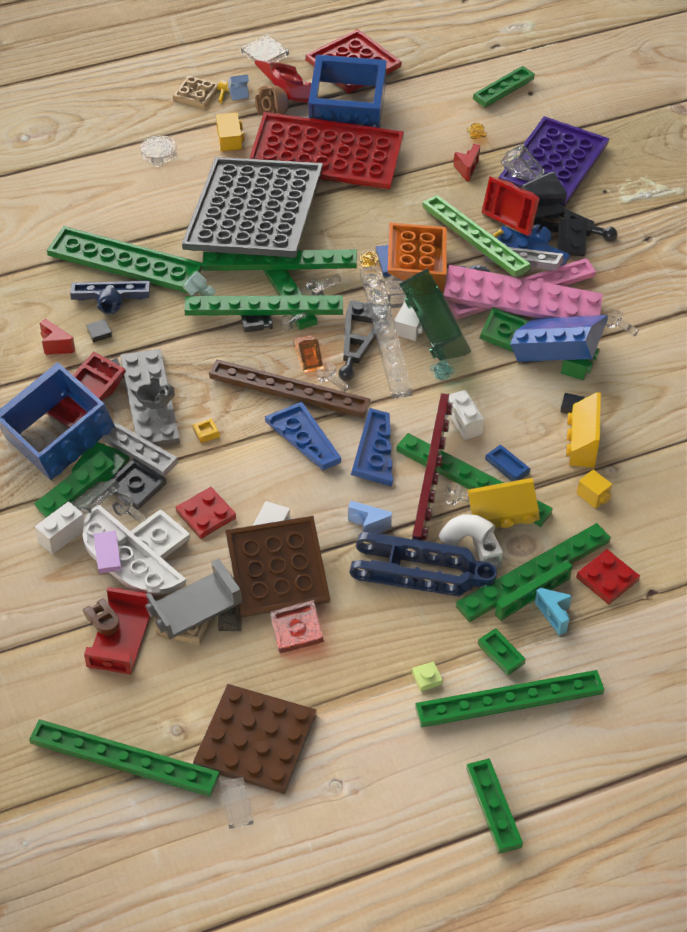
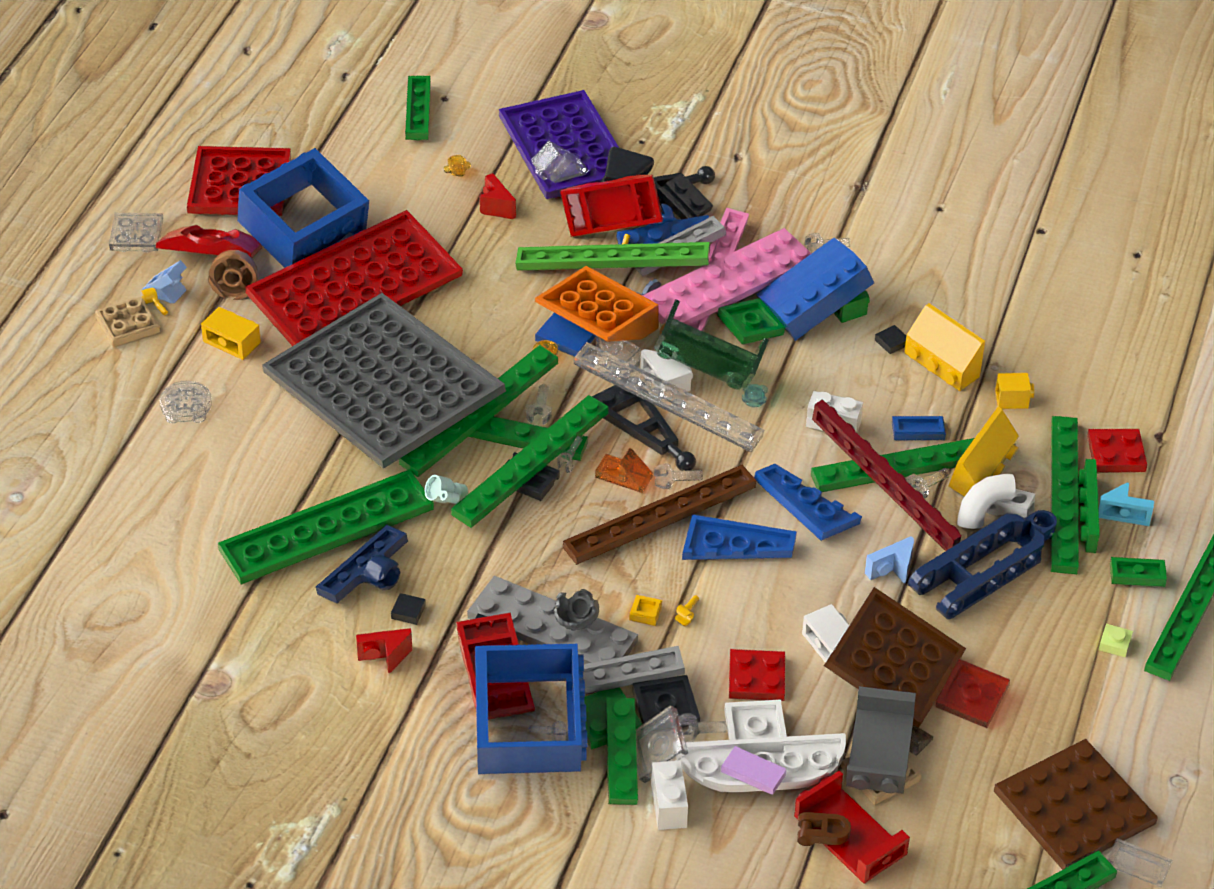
camera: 50 degrees left, 5 degrees down
(219, 448) = (684, 612): none -> yellow hand

